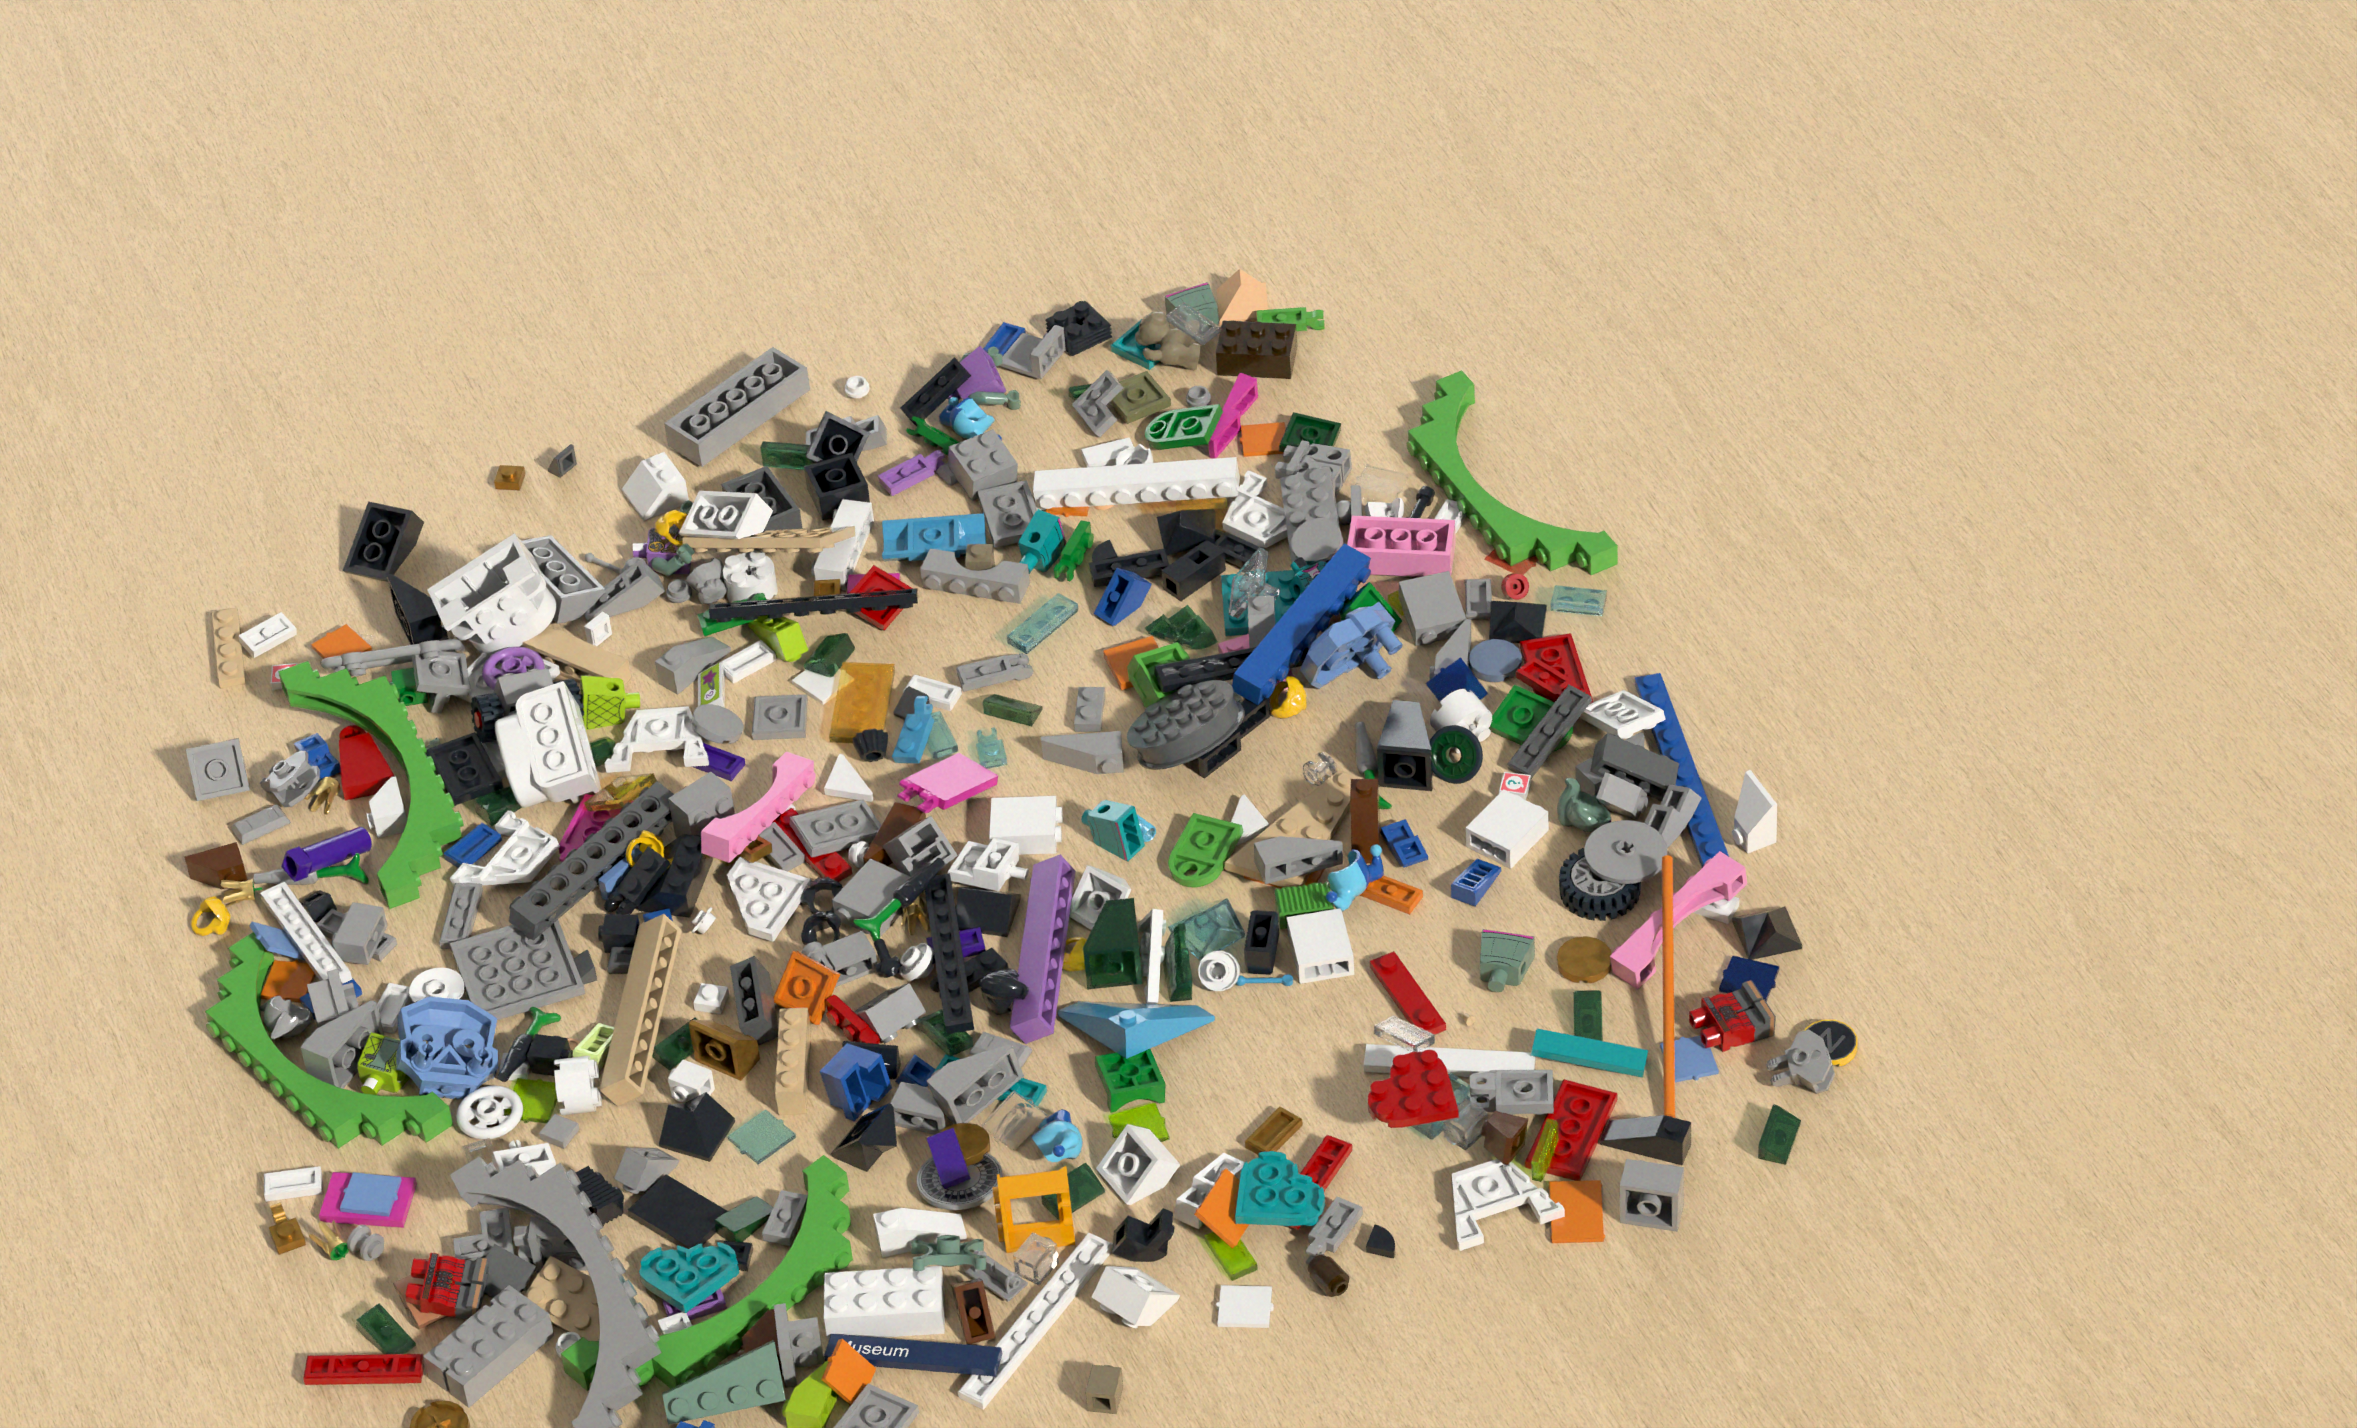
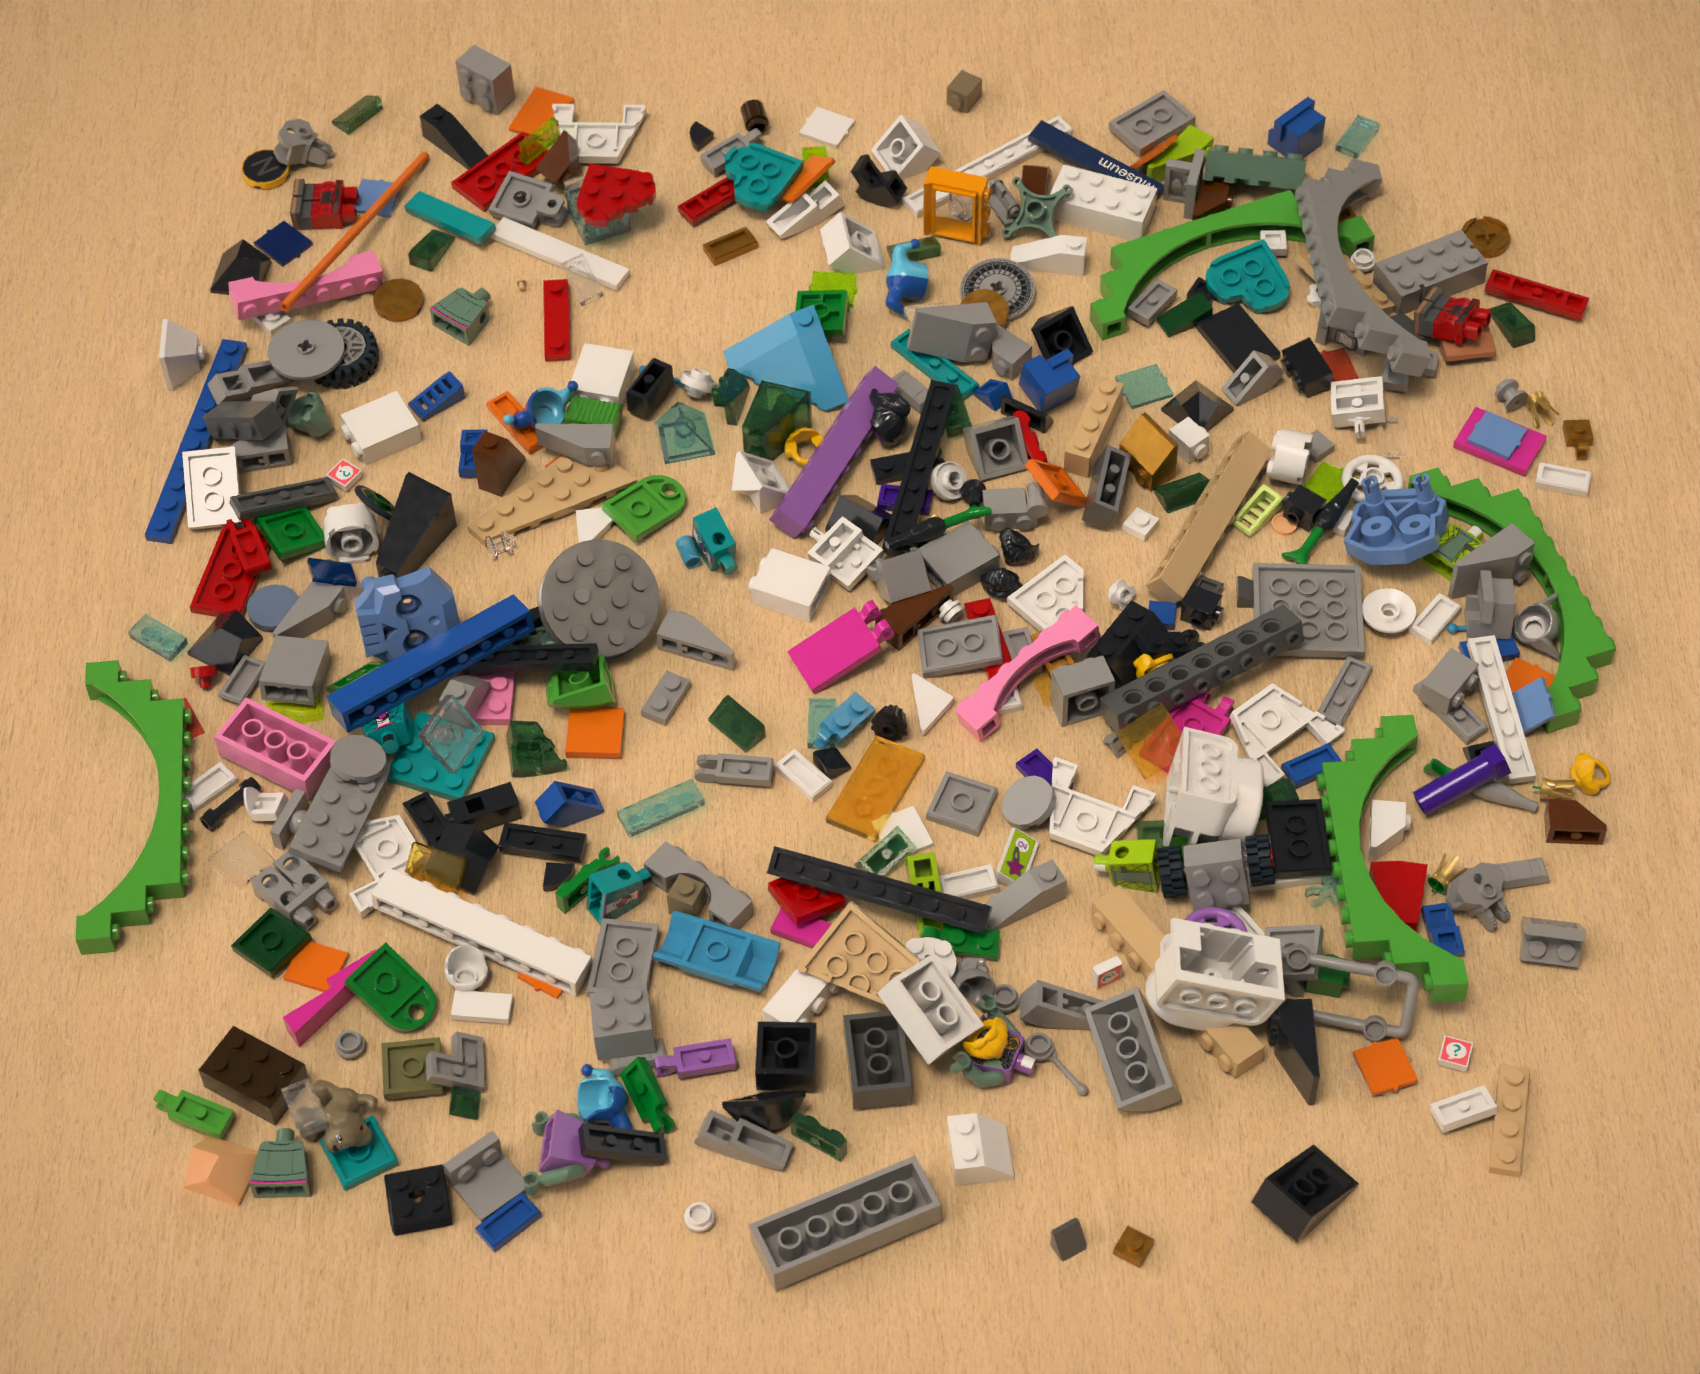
camera: 160 degrees left, 10 degrees up
(948, 1158) = (1002, 288): dark purple tile -> none
(990, 750) = (779, 686): clear light blue plate -> none
(1152, 952) = (732, 425): white wing -> none
(1366, 759) = (456, 536): light grey piece -> none

